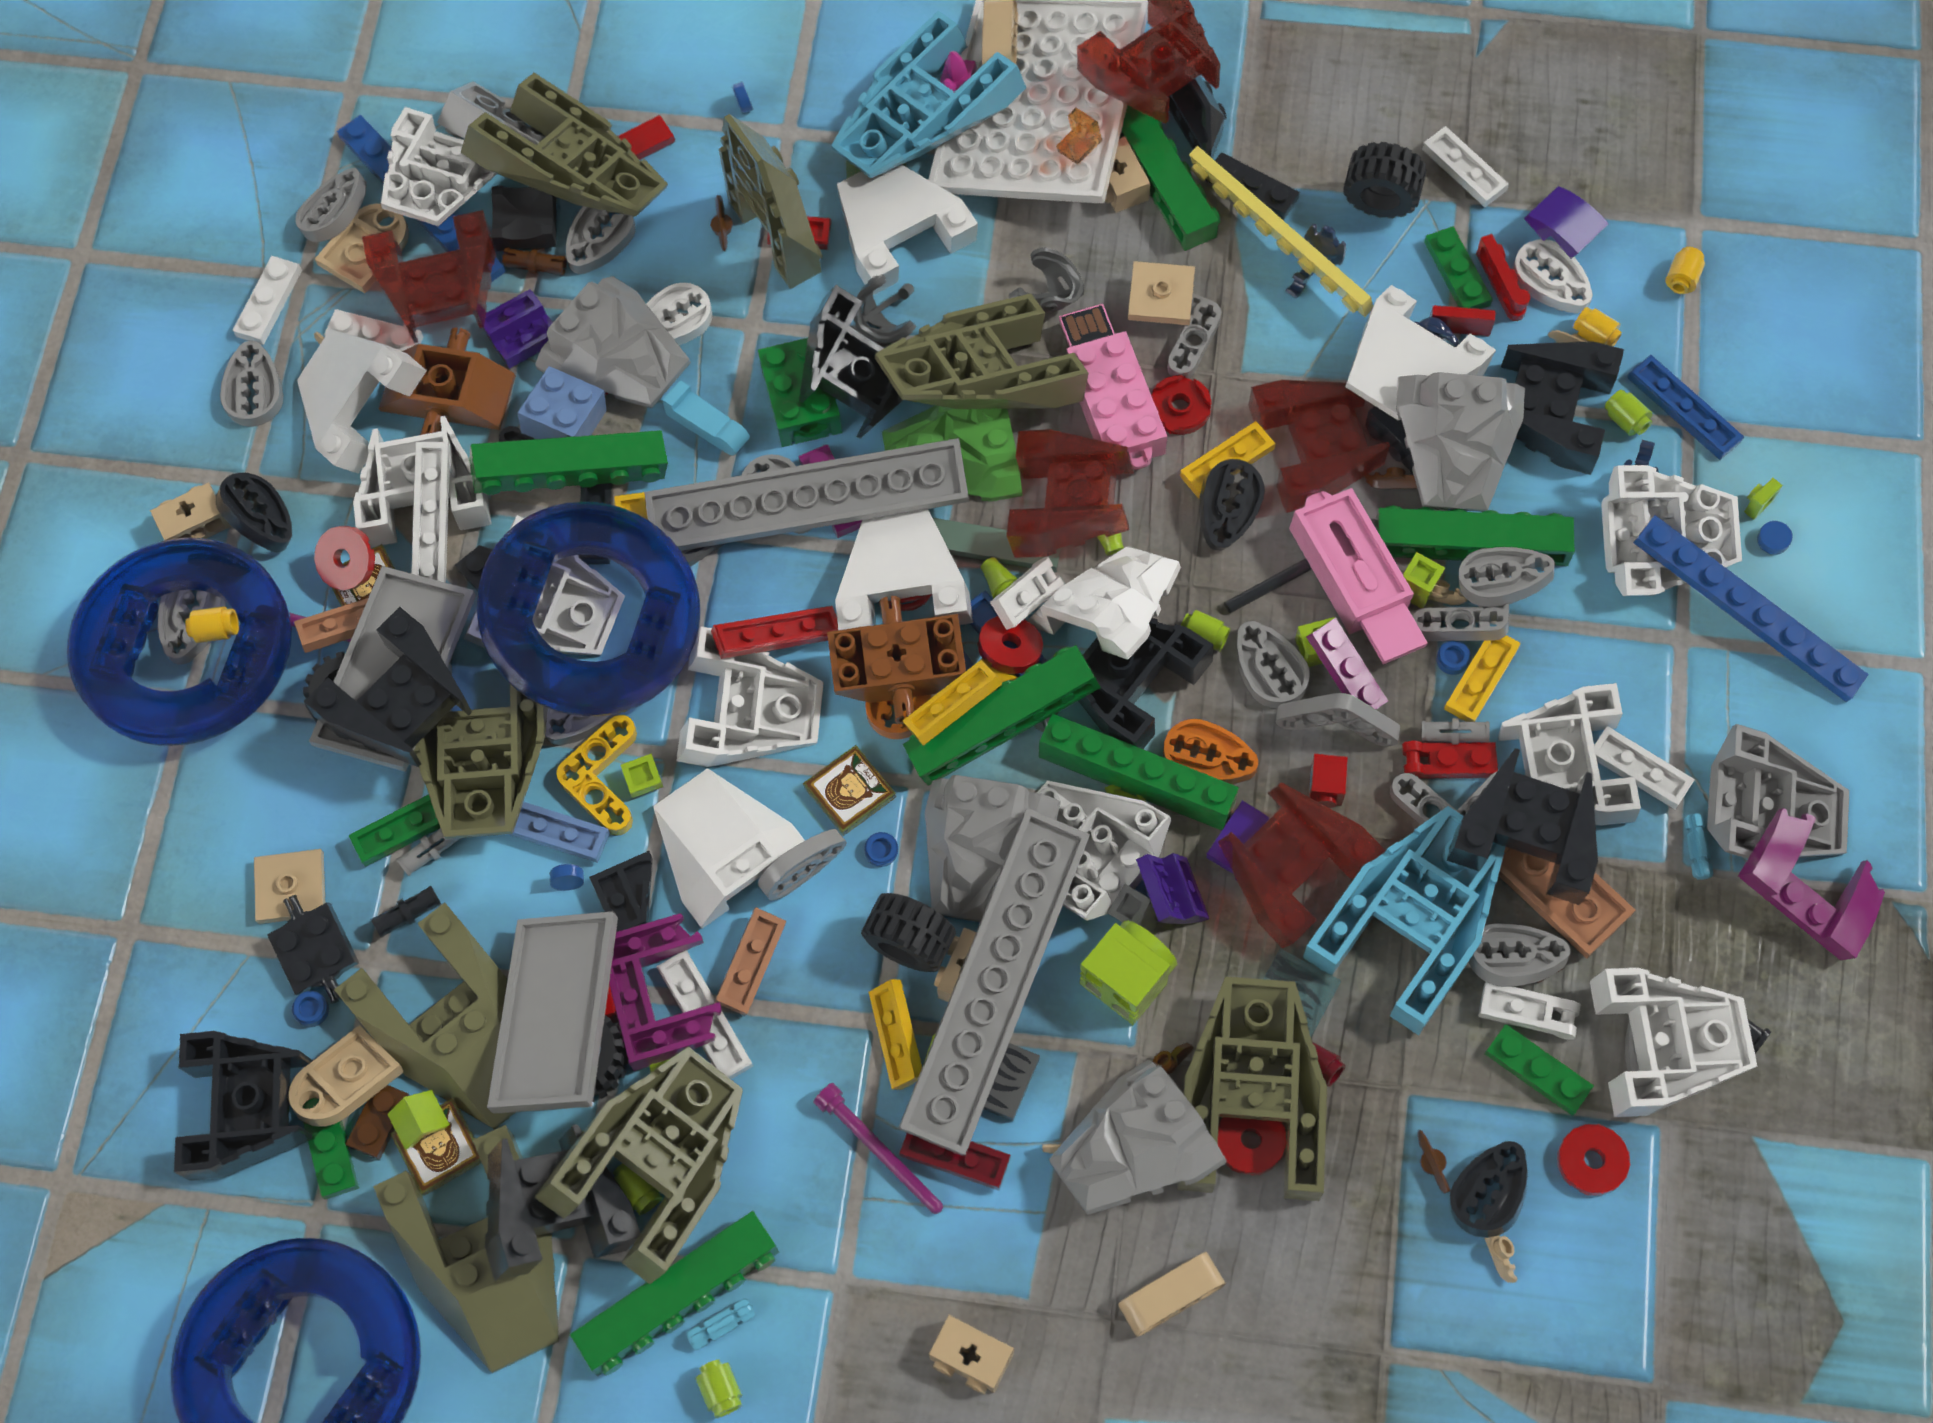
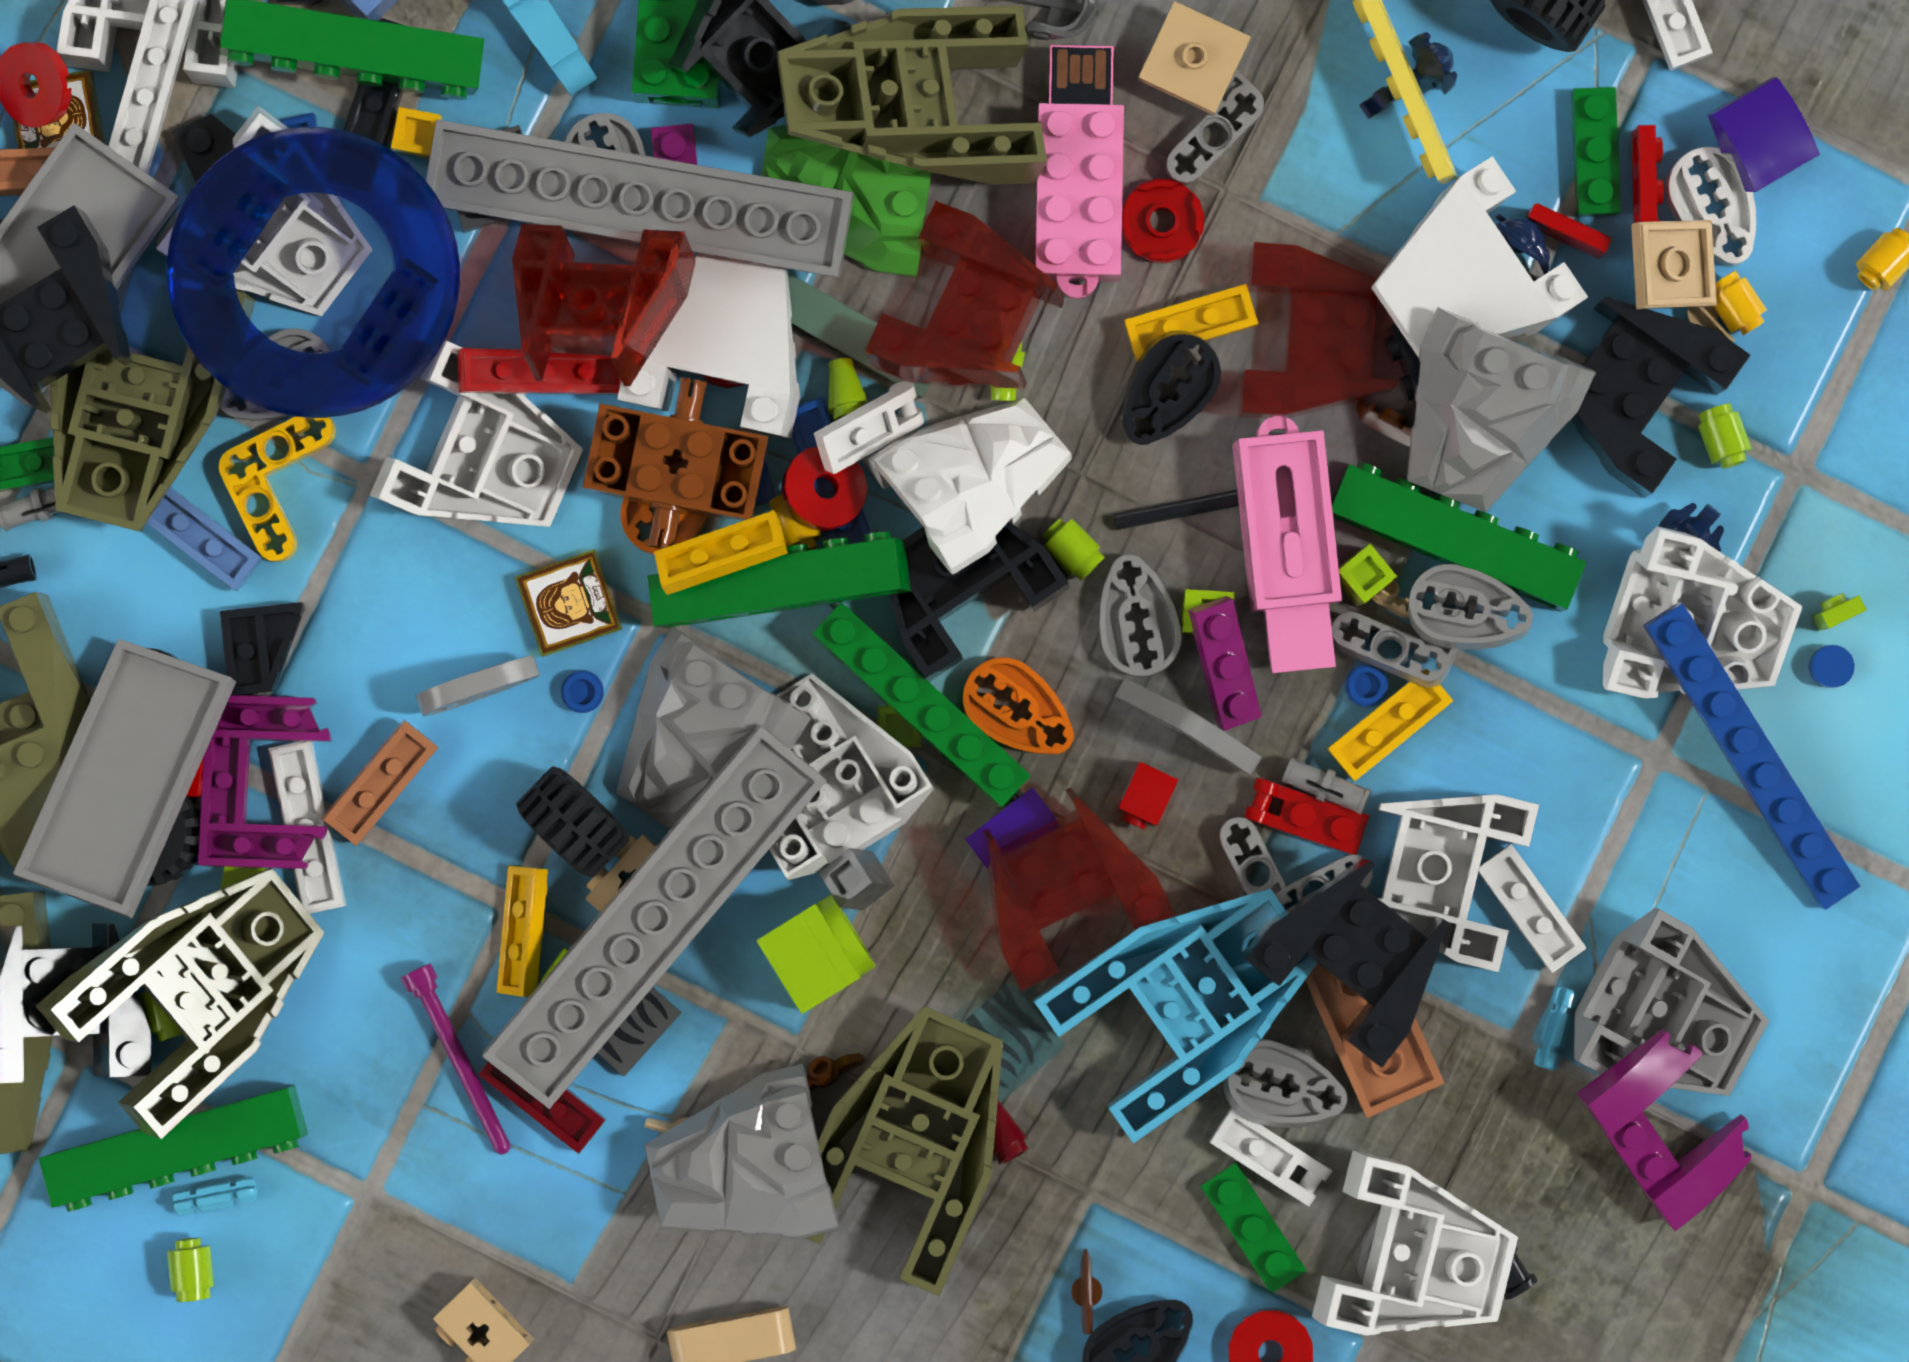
camera: 15 degrees right, 20 degrees up
(566, 877) = (193, 600): blue tile -> none
(641, 775) = (322, 499): lime plate -> none
(718, 842) = (393, 619): white wedge -> none
(802, 564) = (597, 305): none -> clear red wedge
(1172, 889) = (907, 870): dark purple slope -> none
(1255, 1160) = (880, 1218): red tile -> none
(1545, 311) = (1673, 264): none -> tan plate
(1685, 407) = (1802, 448): blue tile -> none

